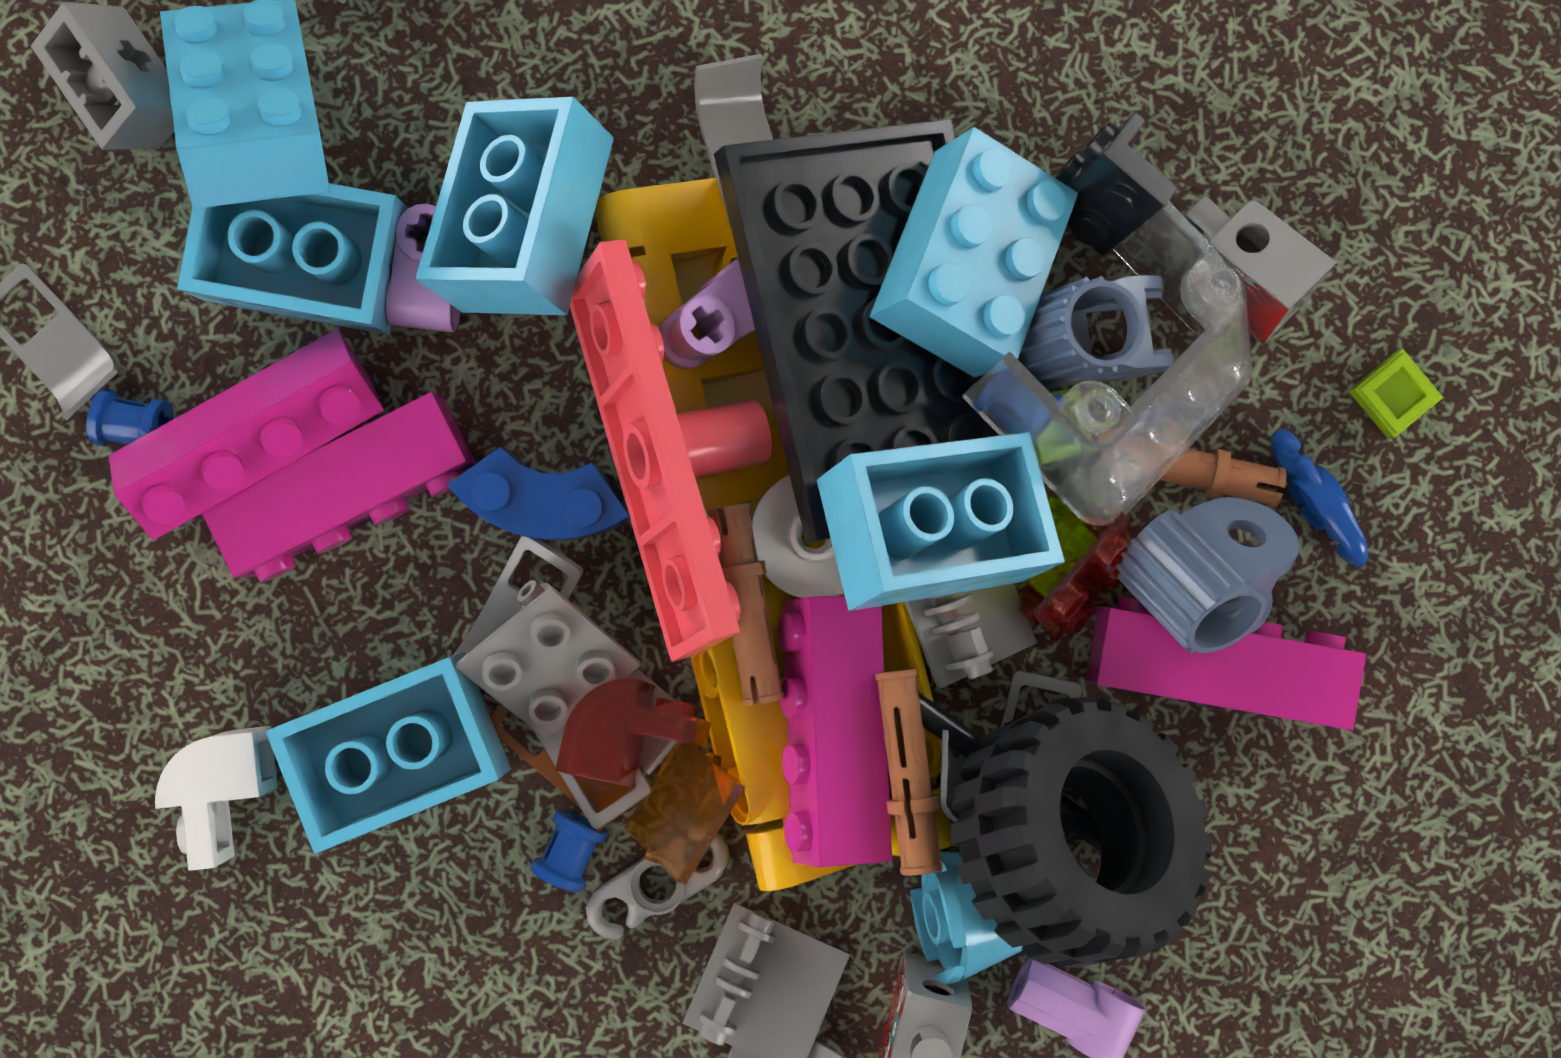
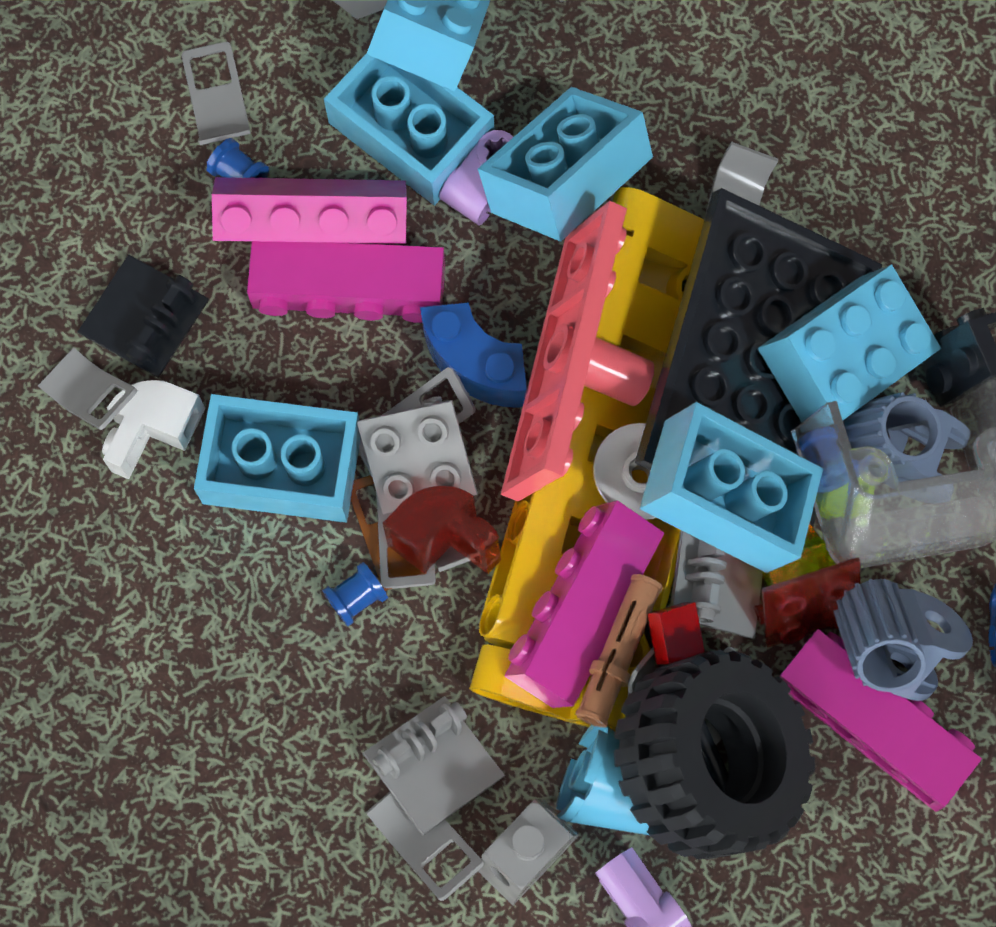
camera: 35 degrees right, 15 degrees down
(114, 786) = (82, 386): none -> light grey piece
(131, 660) = (144, 315): none -> black hinge
(627, 888) = (379, 641): light grey piece -> none
(684, 809) = (450, 605): clear orange piece -> none
(719, 315) = (648, 297): lavender piece -> none
(754, 642) = (572, 487): nougat pin -> none
(960, 712) = (676, 633): none -> red tile
(1223, 475) = (937, 583): nougat pin -> none

